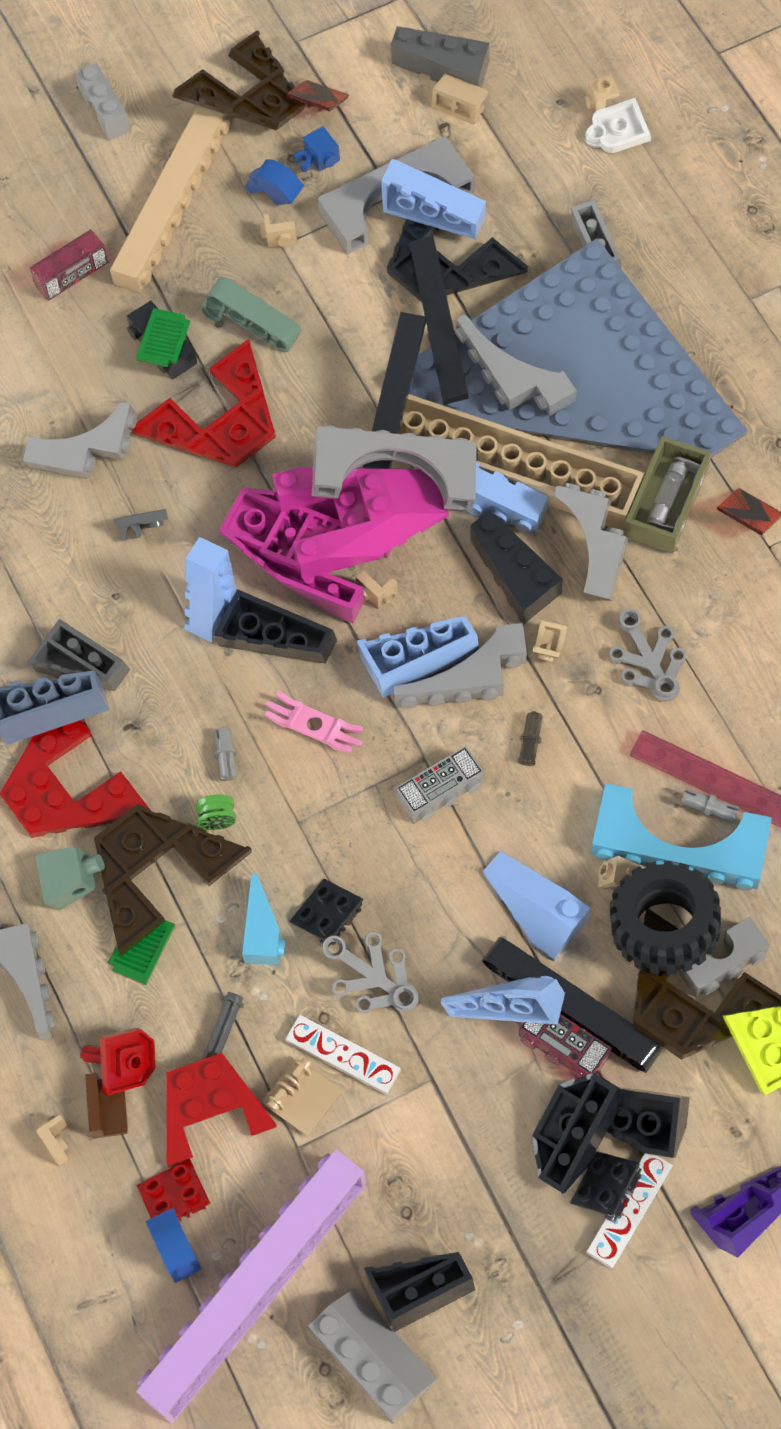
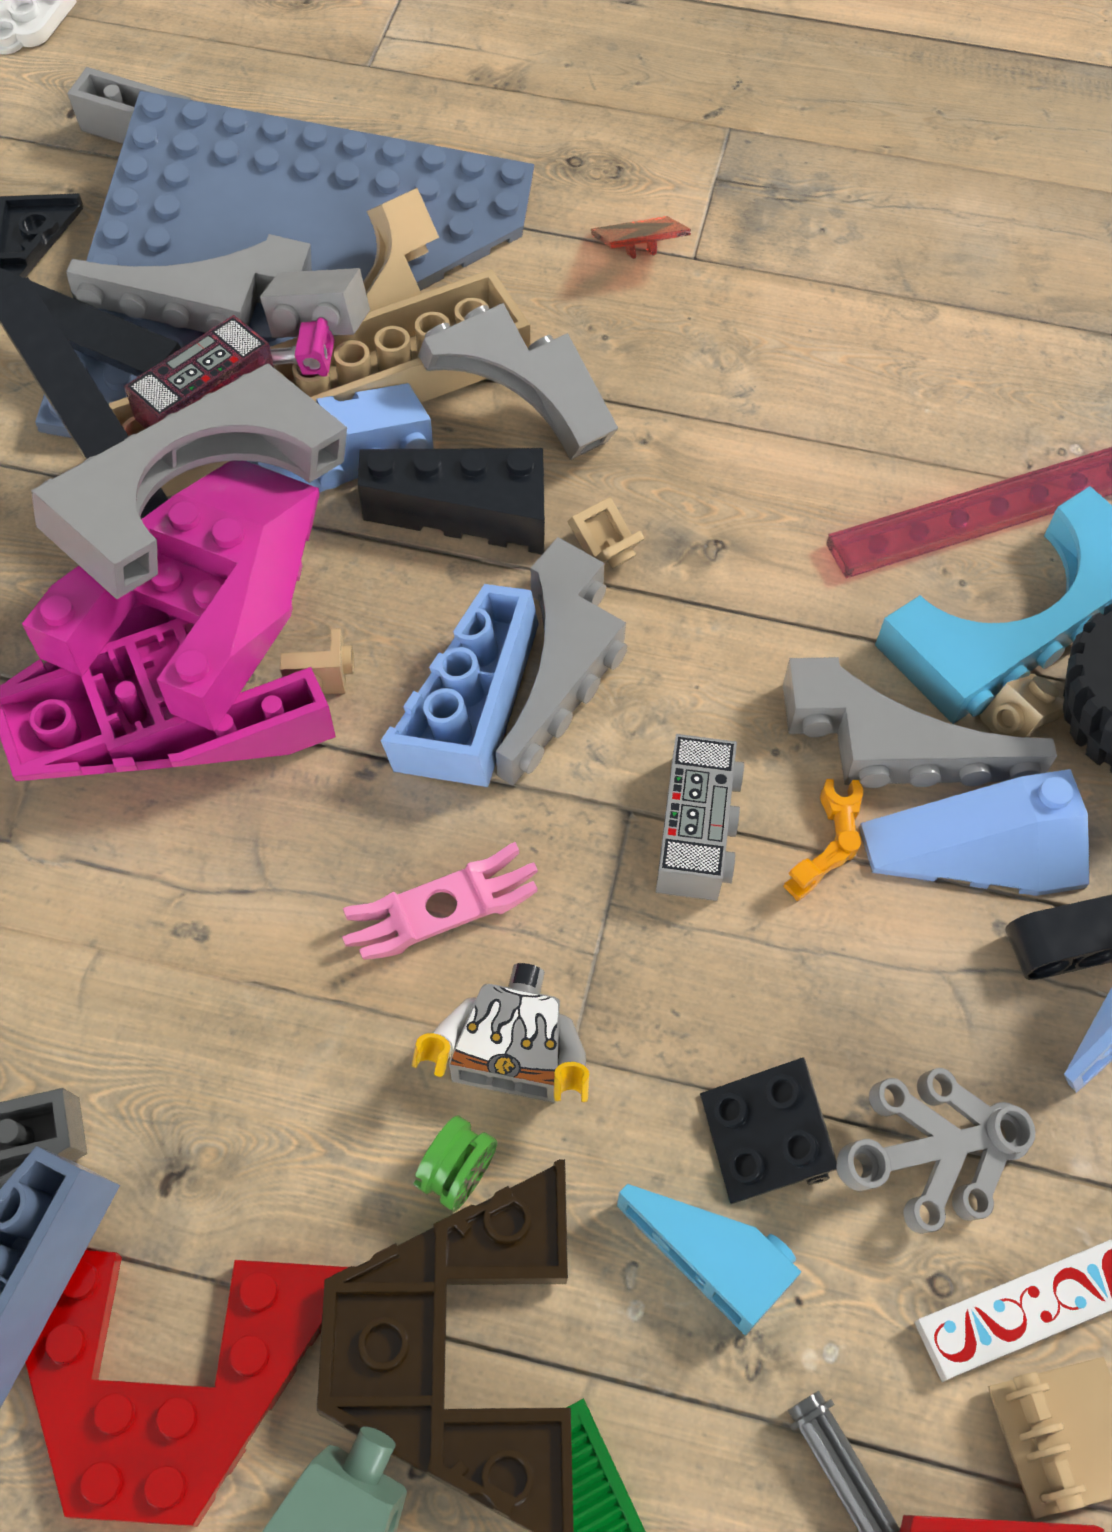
camera: 55 degrees left, 5 degrees down
(208, 588) = (91, 854): light blue wedge -> none
(225, 753) = (366, 1069): light grey axle -> none
(271, 630) = (241, 838): black wedge -> none
(278, 791) = (510, 1041): none -> torso
(454, 847) = (844, 847): none -> light orange piece
(455, 420) = (197, 370): none -> brick
(517, 445) = (312, 349): none -> dark pink piece
(530, 739) = (724, 661): clear smoke axle -> none
(543, 424) = (308, 295): none -> light grey brick
(546, 833) = (894, 744): none -> light grey arch
(598, 438) = (401, 235): none -> tan arch
(648, 659) = (780, 469): light grey plant -> none
(667, 494) = (540, 272): olive piece -> none
(709, 805) = (1000, 543): light grey pin -> none

